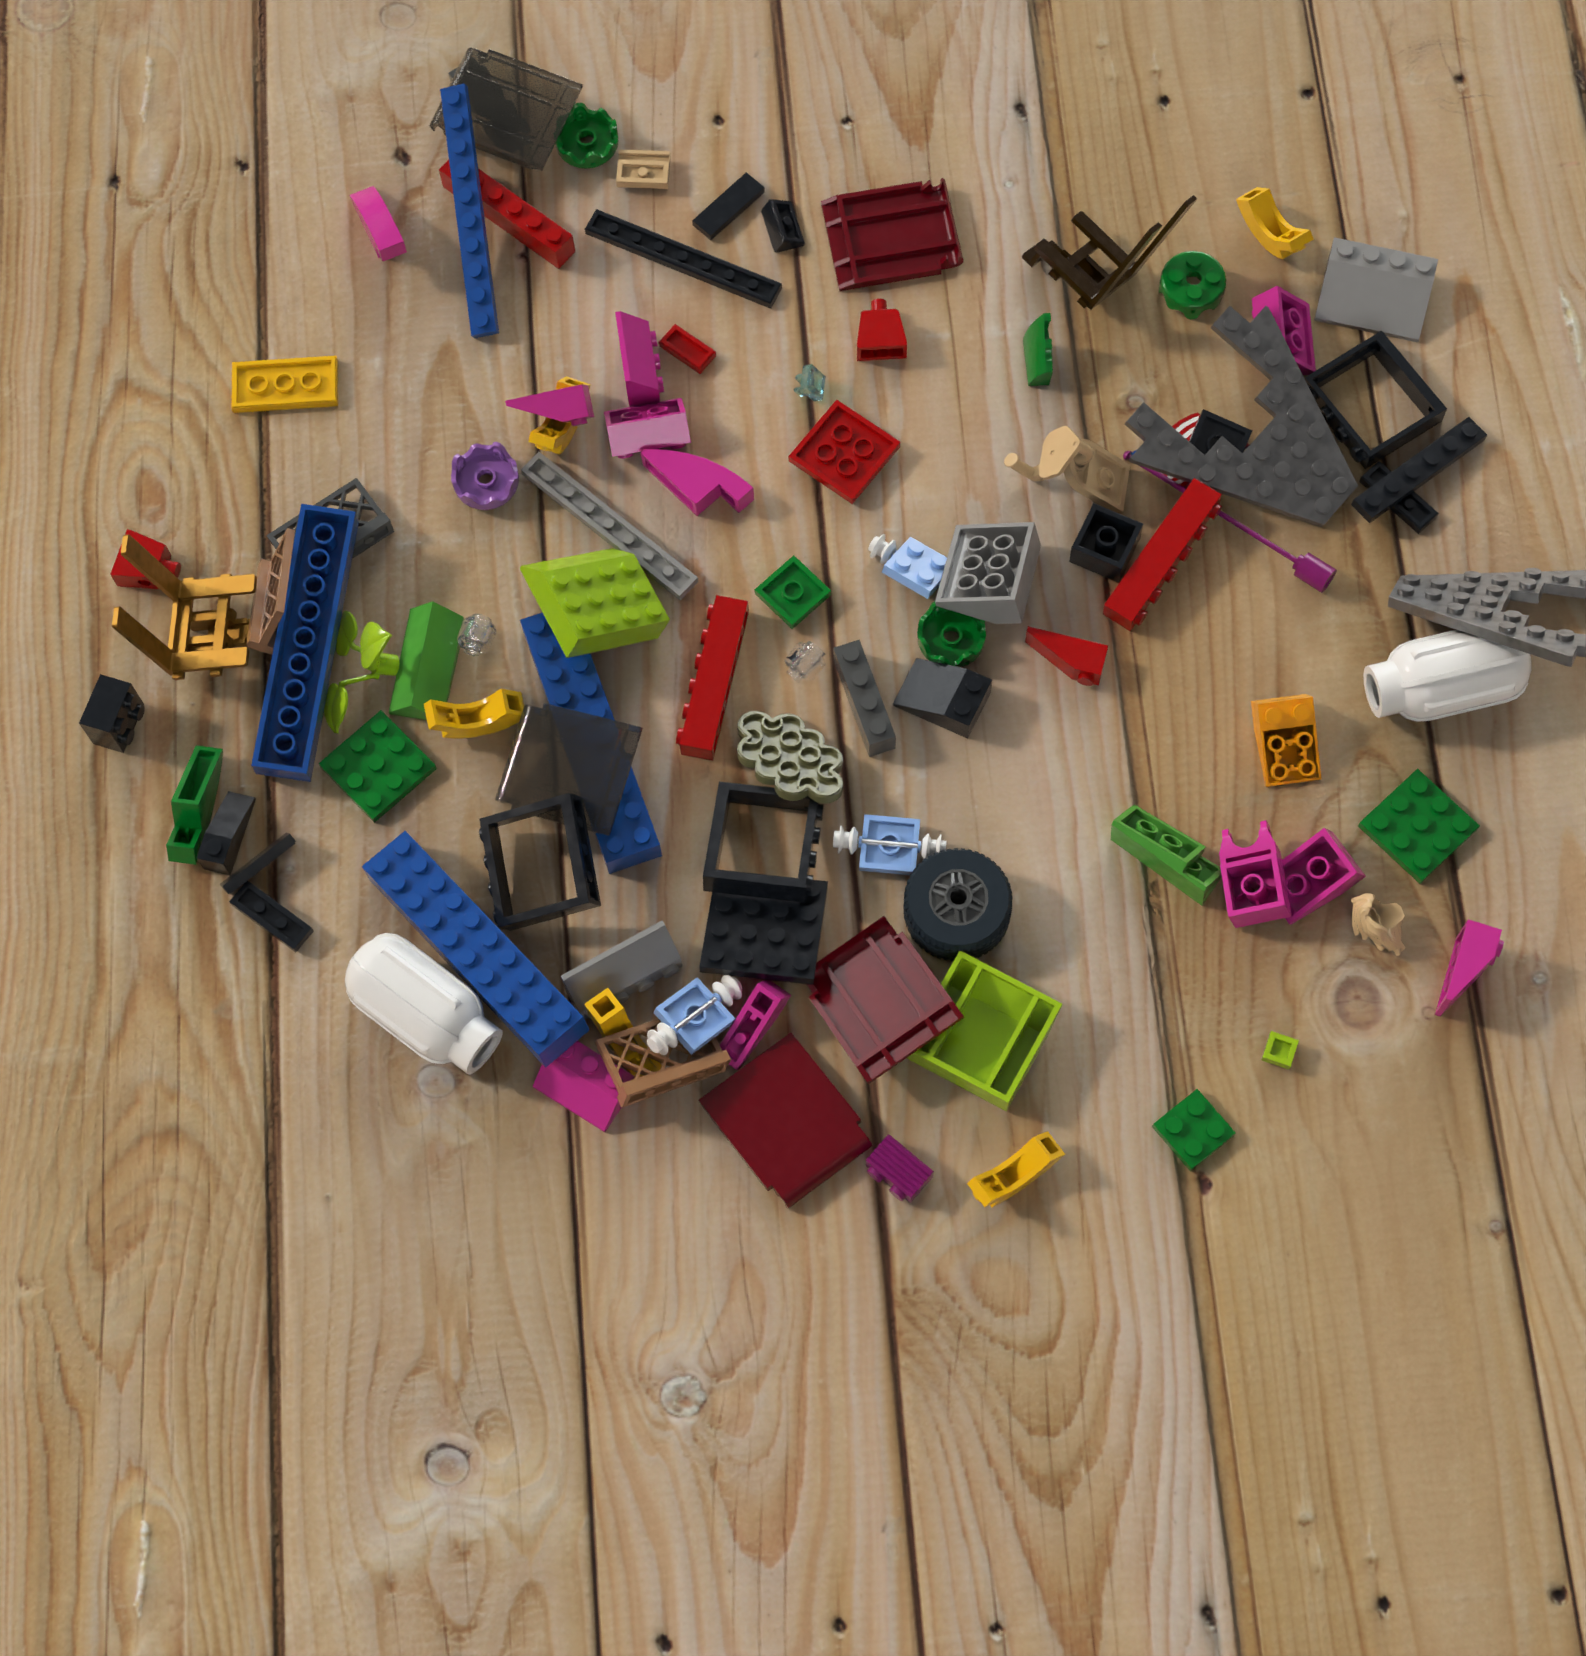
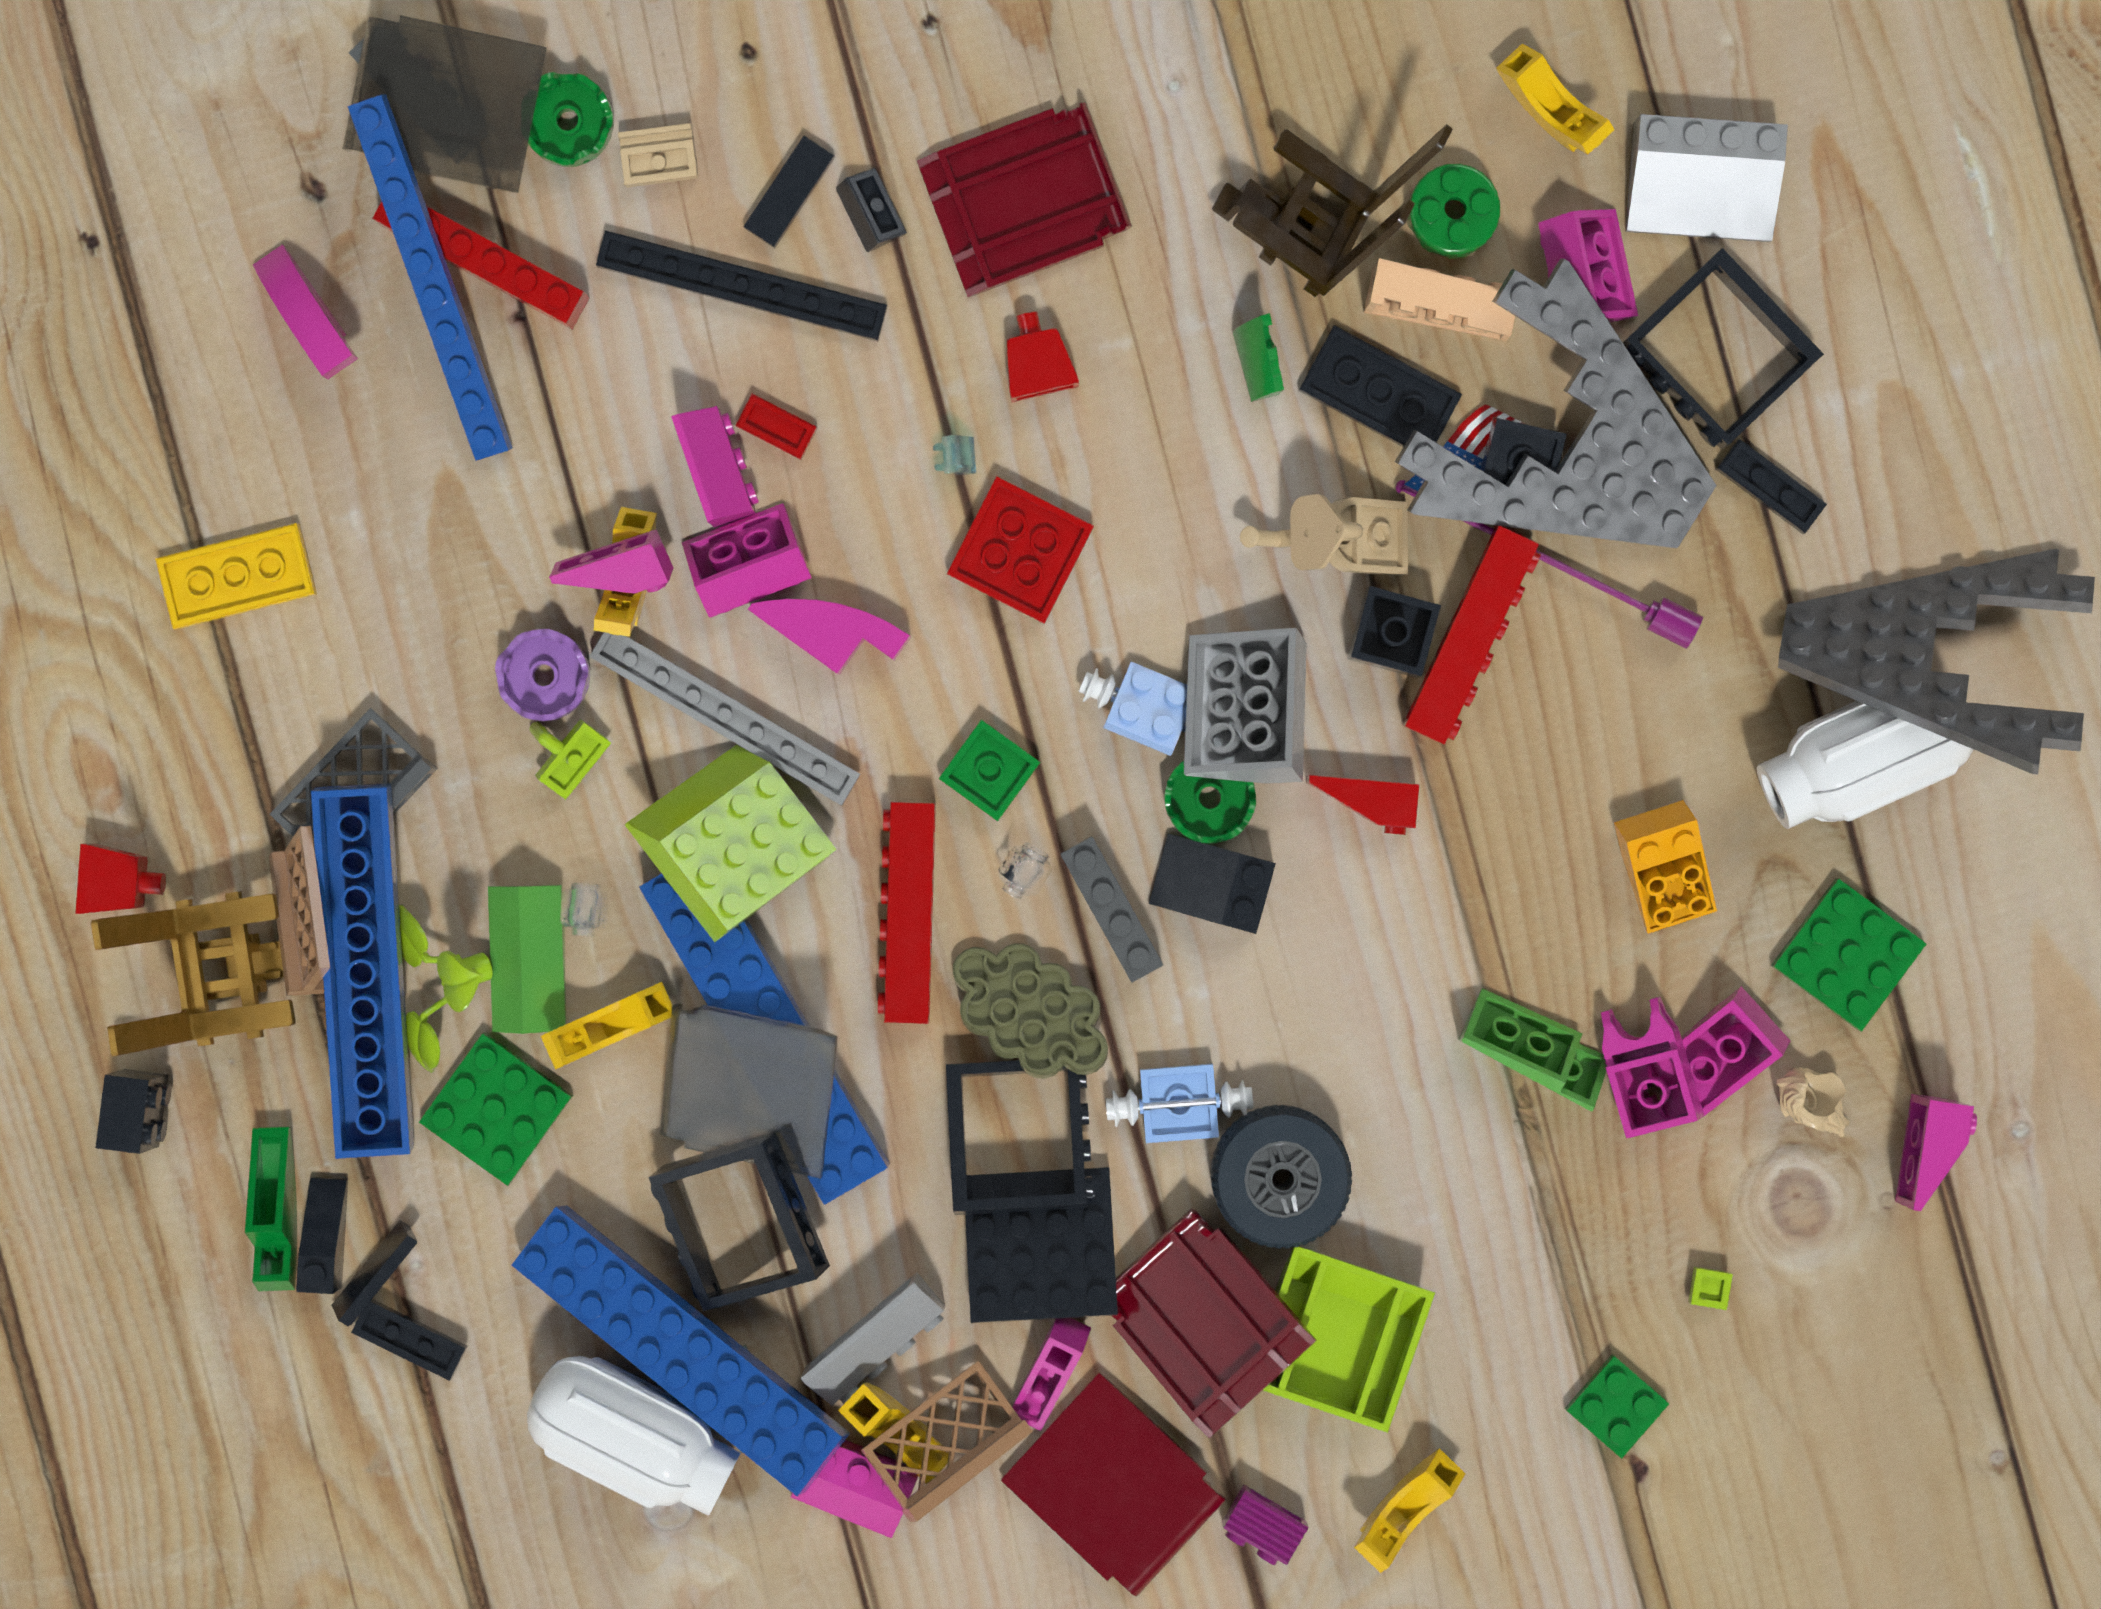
camera: 20 degrees left, 20 degrees up
(491, 533) = (569, 758): none -> lime plate
(694, 1015) = (976, 1385): light blue plate -> none
(1117, 387) = (1378, 389): none -> black tile
(1171, 335) = (1437, 300): none -> light nougat wedge
(1419, 469) = (1795, 446): black plate -> none

